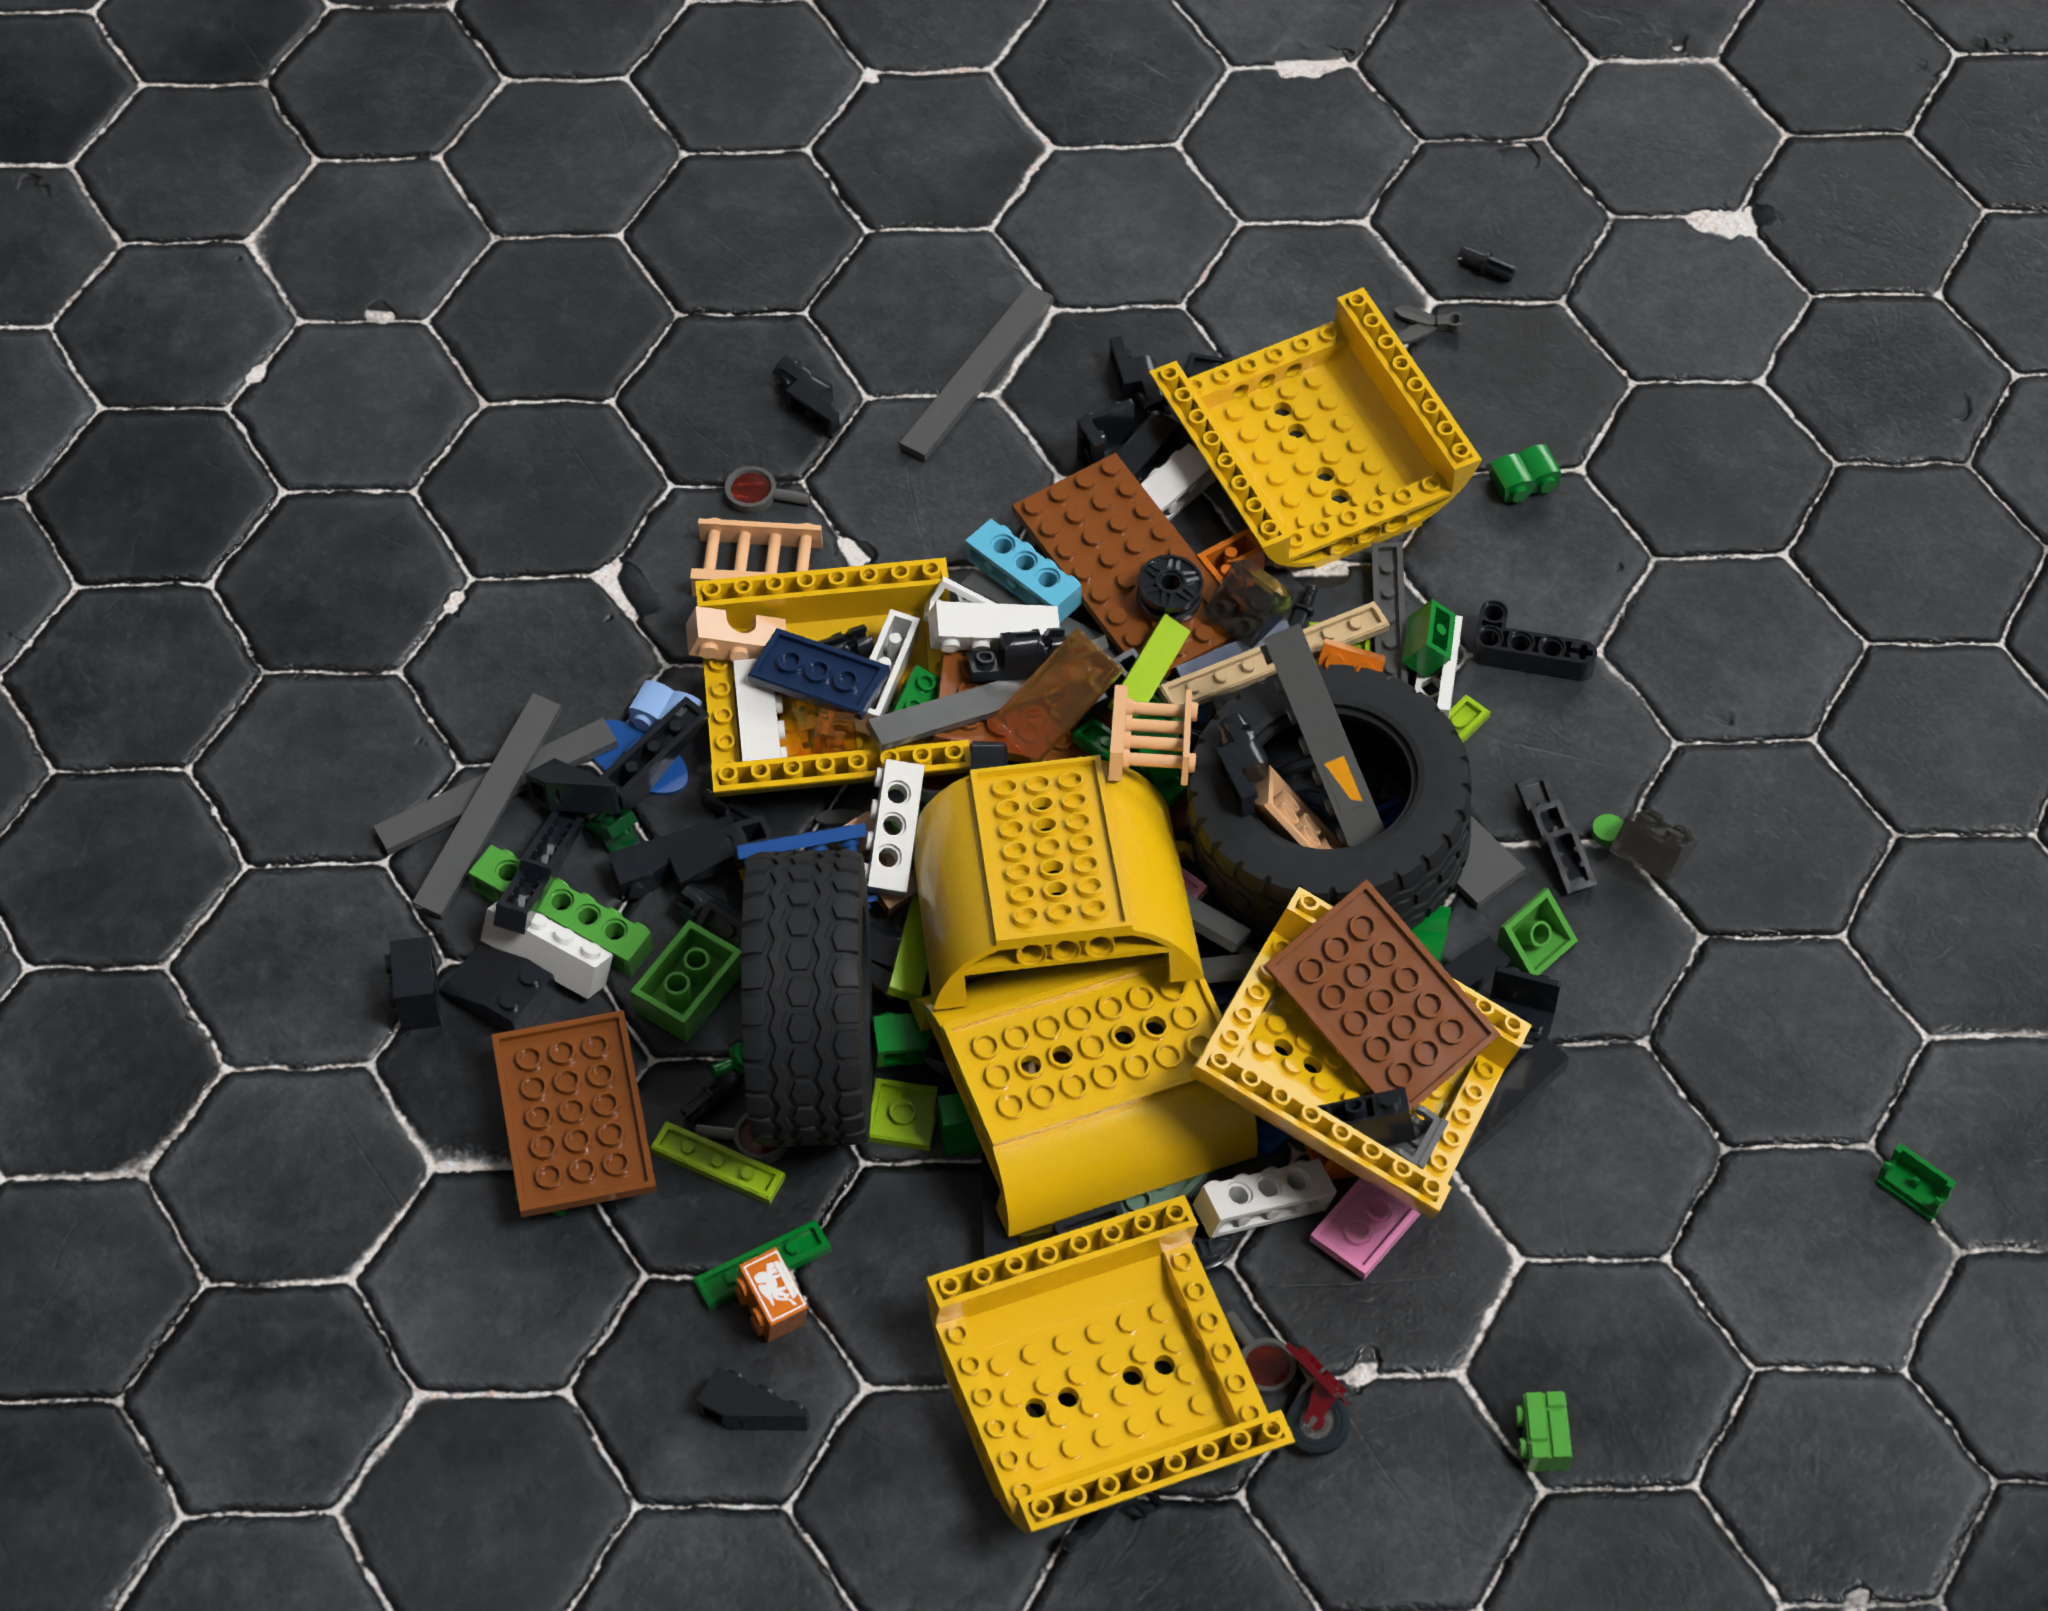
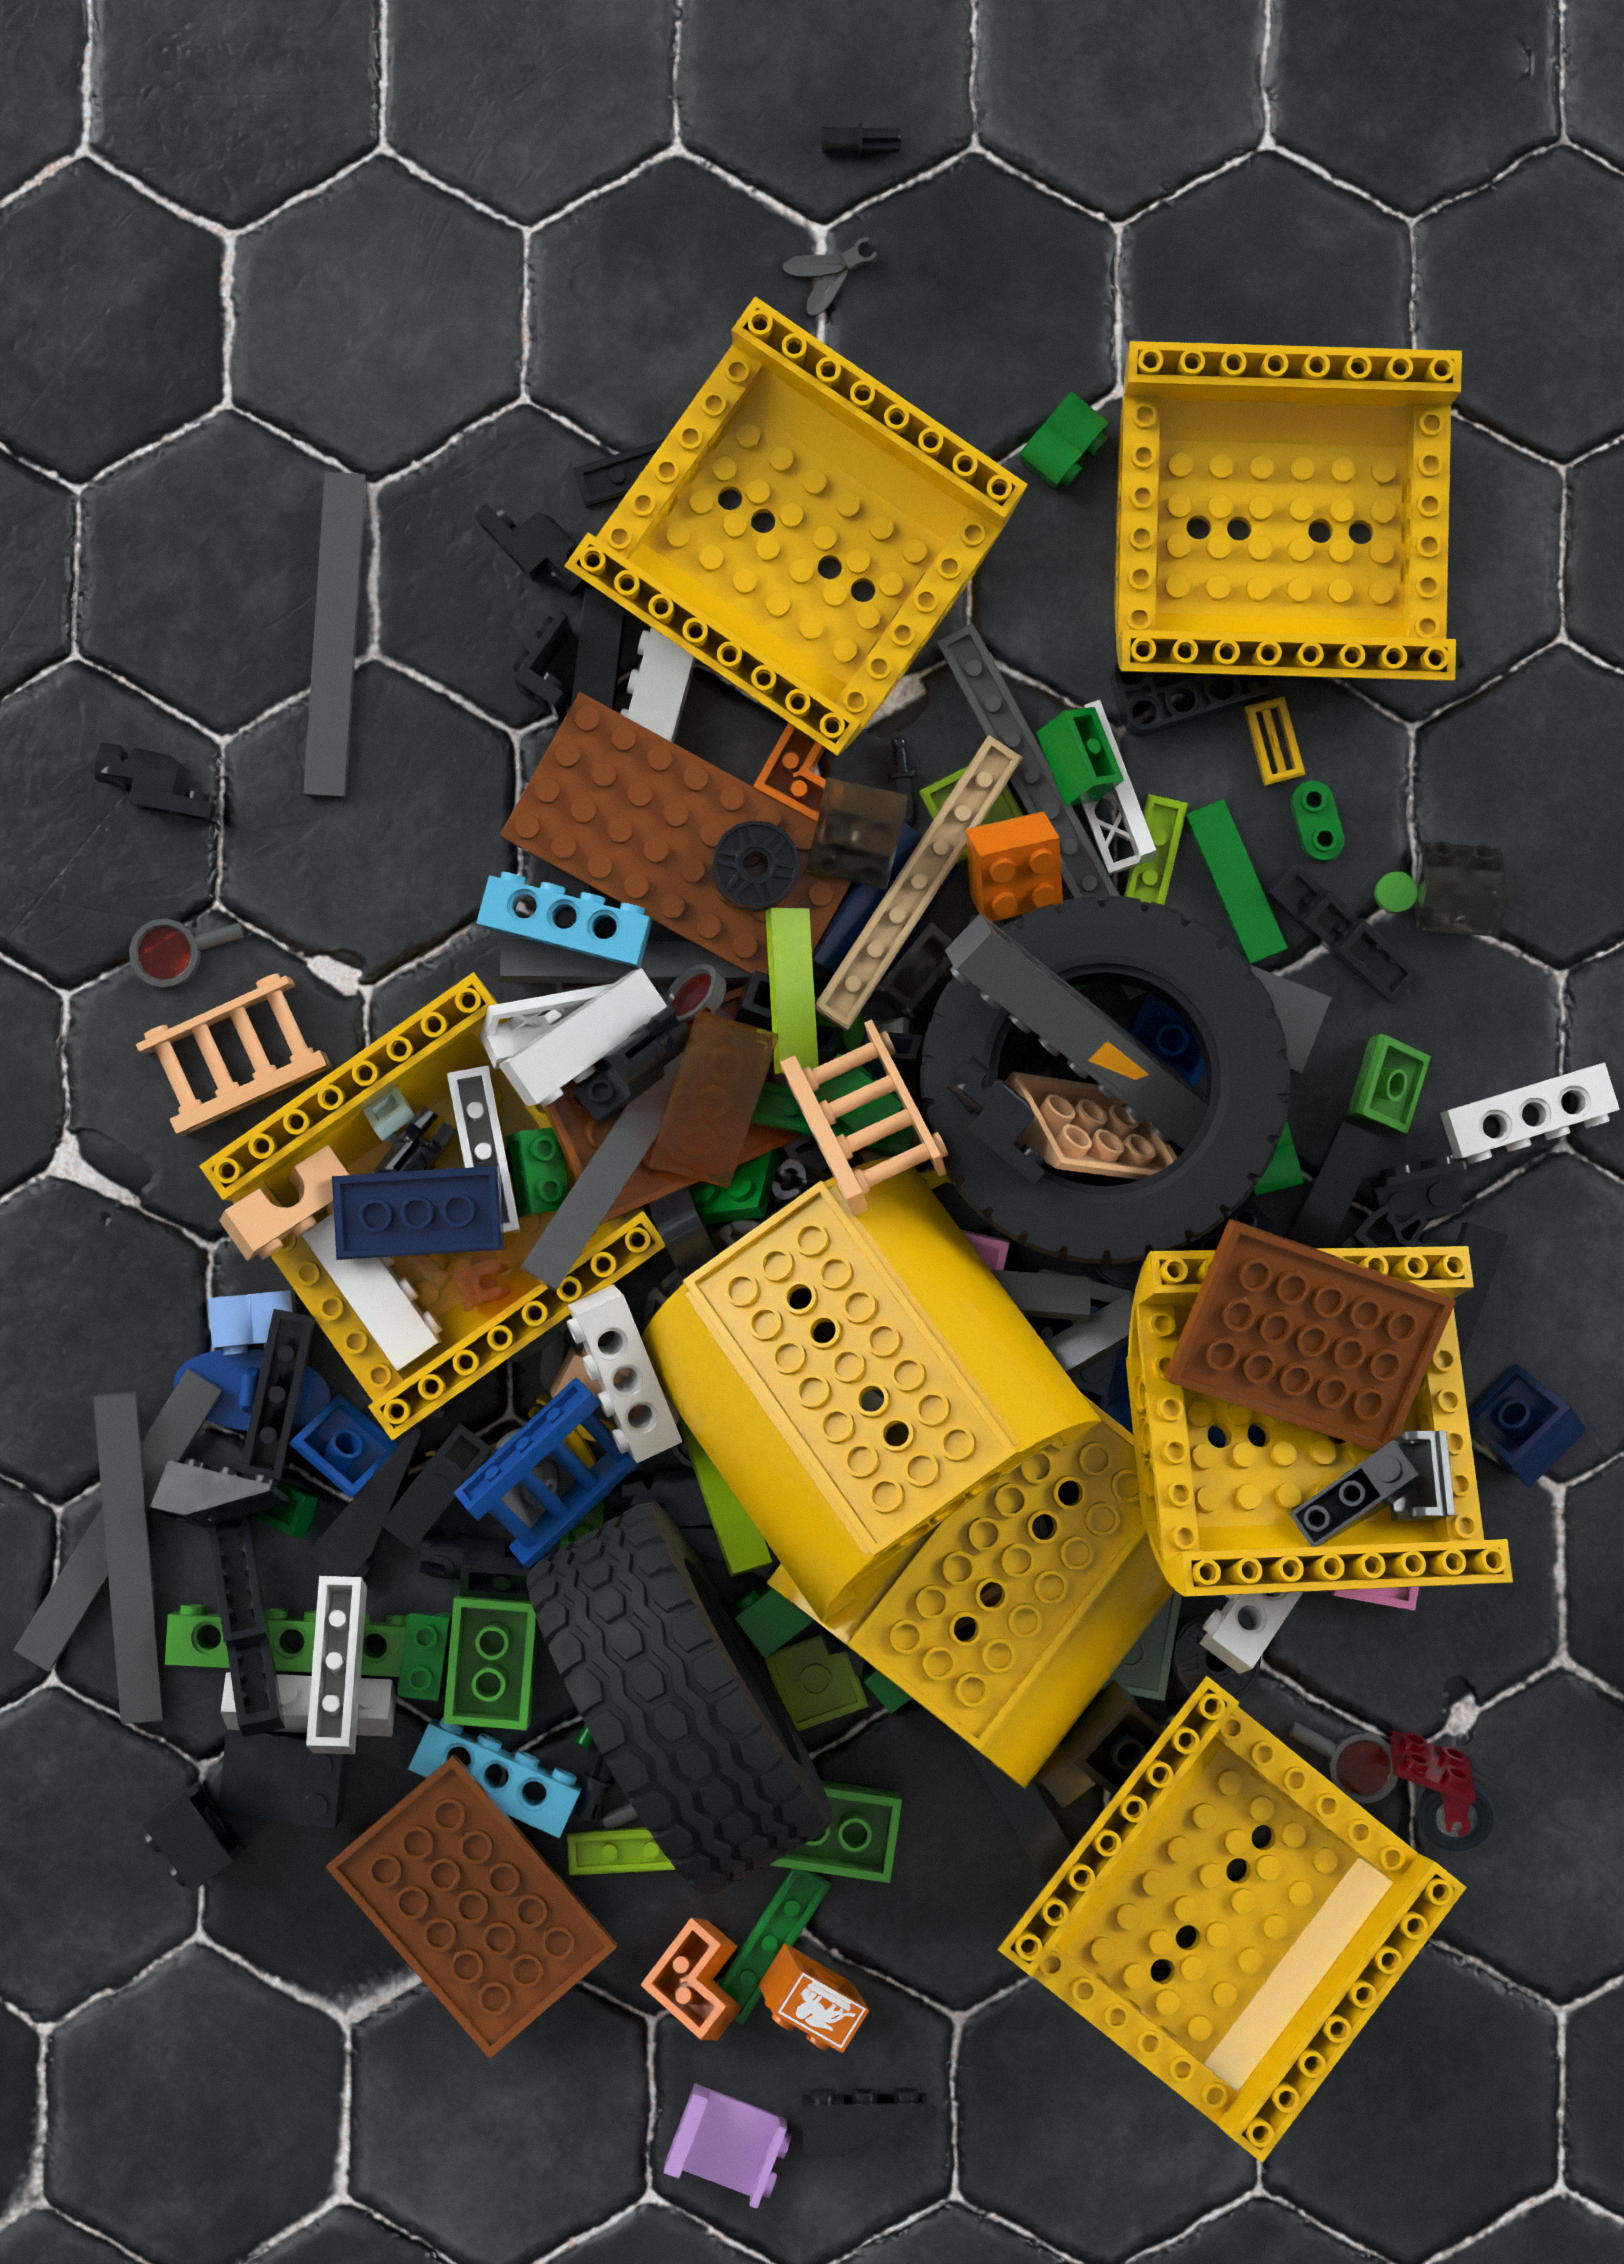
camera: 30 degrees left, 30 degrees up
(585, 909) = (336, 1665): none -> white brick
(642, 951) = (425, 1656): none -> green bracket
(643, 1377) = (728, 2143): none -> lavender panel
(665, 1097) = (560, 1785): none -> medium azure brick
(671, 805) = (344, 1445): none -> blue slope
(694, 1241) = (685, 1980): none -> orange brick
(833, 626) = (389, 1114): none -> light aqua tile
(856, 1201) = (858, 1840): none -> bright green brick
(1497, 773) = (1236, 882): none -> green tile
(1515, 1197) = (1524, 1425): none -> dark blue slope
(1568, 726) = (1282, 774): none -> yellow tile
(1577, 762) = (1317, 820): none -> green plate
(1644, 992) = (1589, 1086): none -> white brick
(1672, 534) = (1283, 446): none -> yellow slope

